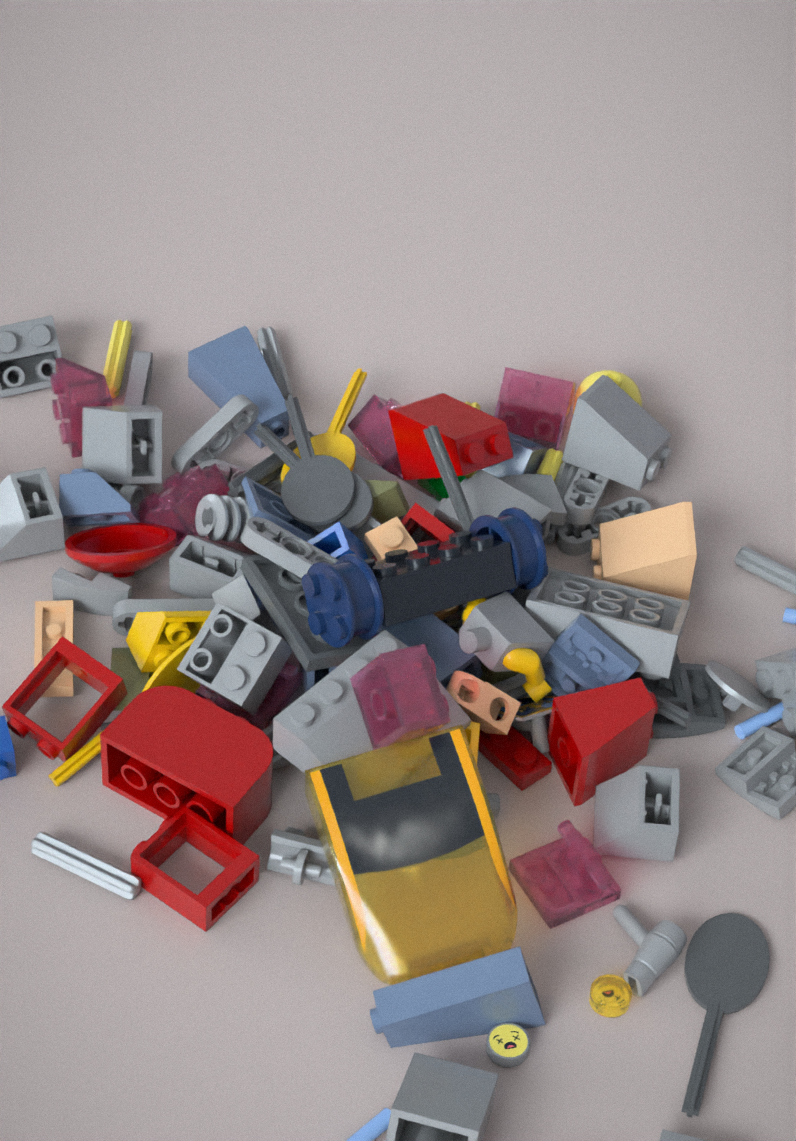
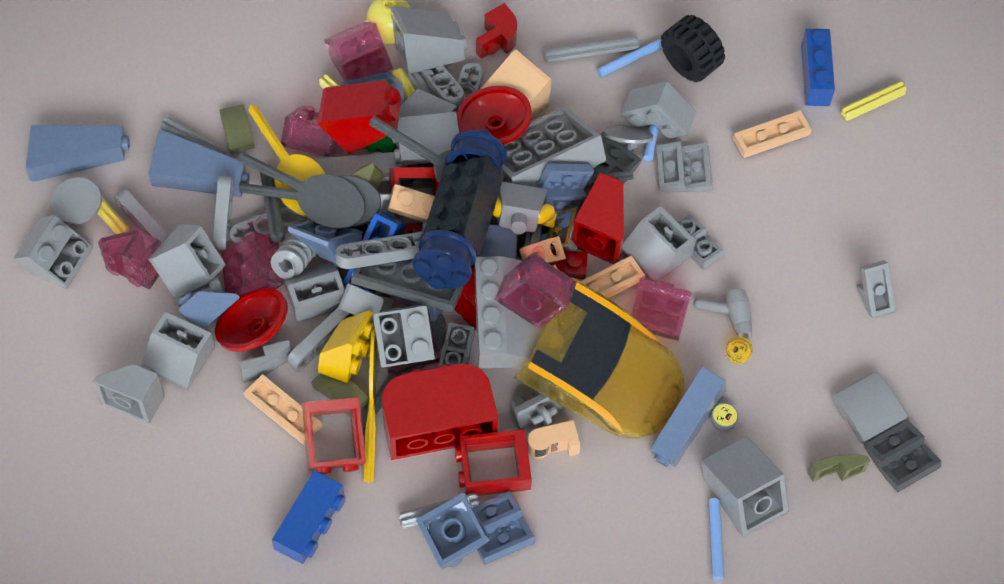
camera: 45 degrees left, 15 degrees up
(65, 886) = (453, 531): none -> sand blue slope
(97, 330) = (76, 200): none -> light grey piece
(123, 933) = (504, 526): none -> sand blue slope
(150, 289) = (73, 148): none -> sand blue slope
(287, 901) = (553, 439): none -> light nougat leg
(325, 386) = (237, 128): none -> olive slope
(539, 806) = (616, 277): none -> light nougat plate
(593, 546) = (498, 110): none -> red dish
(694, 852) = (705, 250): none -> light grey slope
(712, 499) = (501, 32): none -> red brick
(724, 975) = (775, 295): dark grey piece -> none

